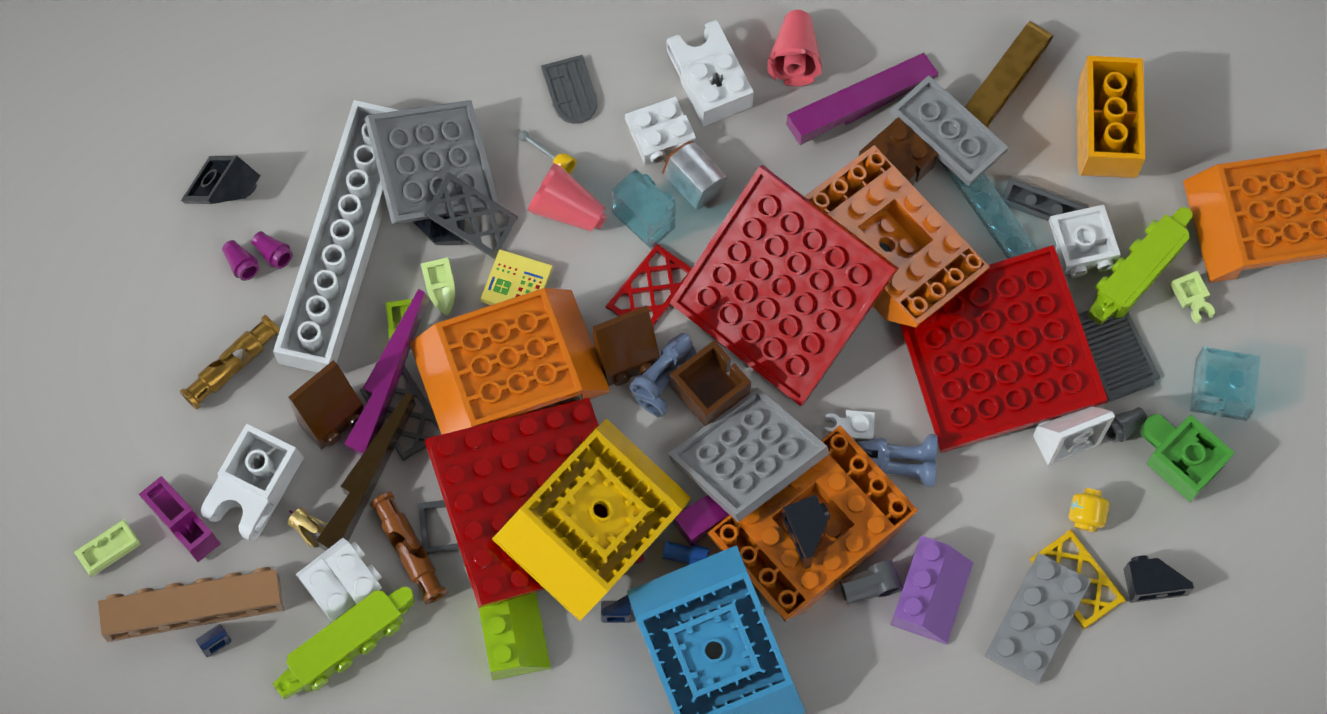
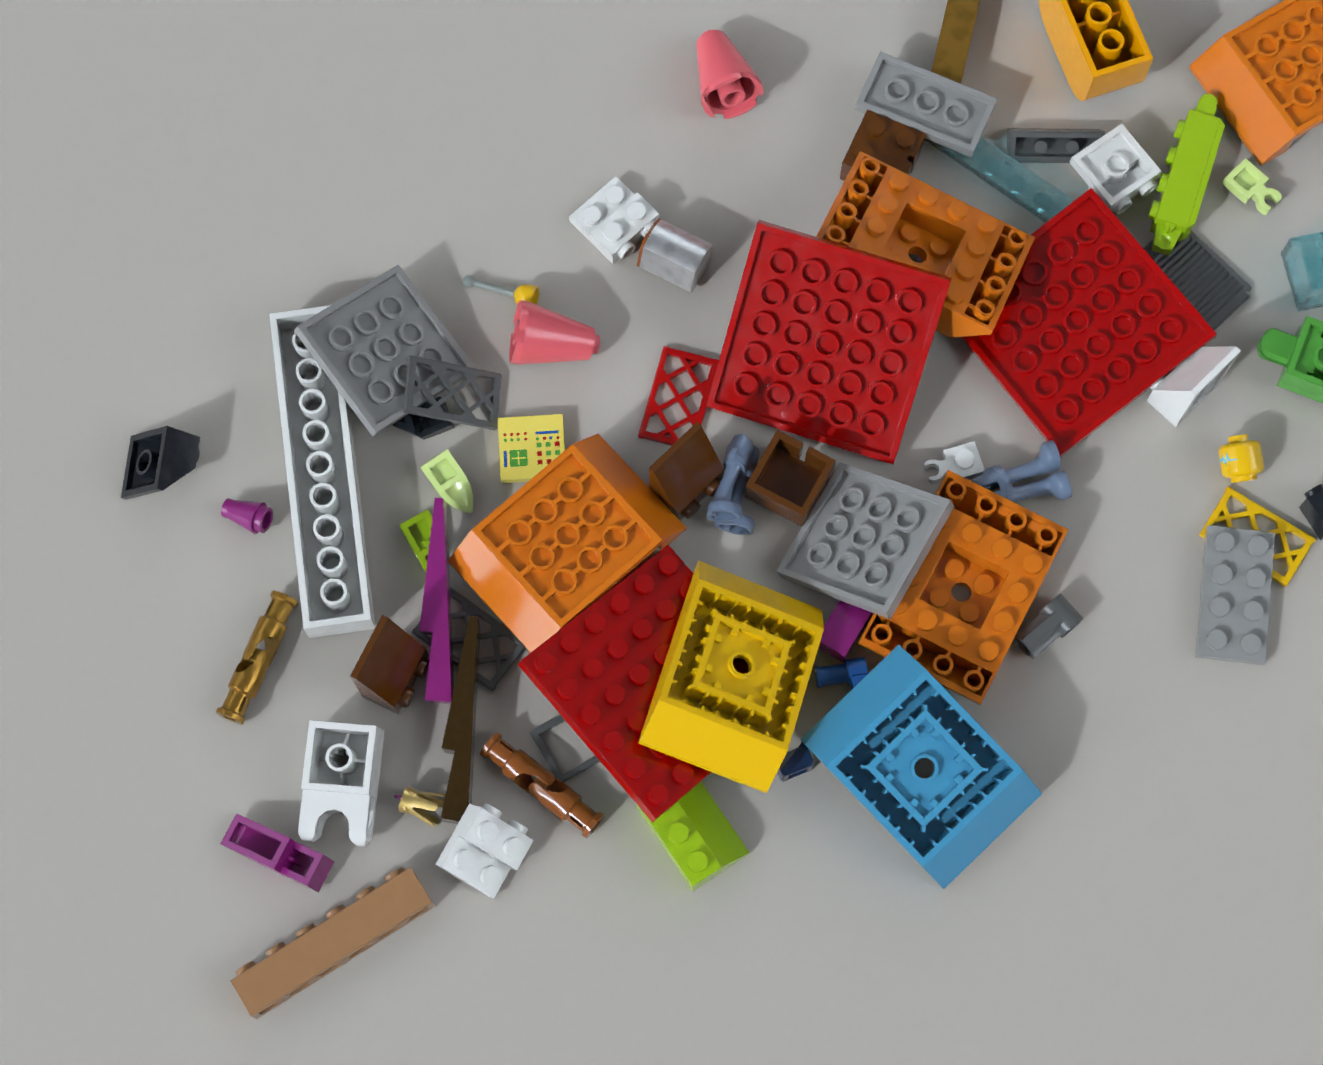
camera: 20 degrees left, 5 degrees up
(107, 548) = (211, 916): yellowish green plate -> none
(213, 640) = (372, 970): dark blue slope -> none
(240, 260) = (220, 541): magenta cone -> none
(343, 640) = (516, 914): lime hinge -> none
(570, 89) = (497, 210): dark grey window -> none
(644, 208) = (637, 313): clear light blue piece -> none
(711, 75) = (644, 137): white brick -> none
(807, 525) = (963, 595): black slope -> none
(859, 99) = (814, 104): magenta slope -> none
(932, 590) = (1113, 609): medium lavender slope -> none
(1125, 424) = (1246, 343): dark grey cone -> none

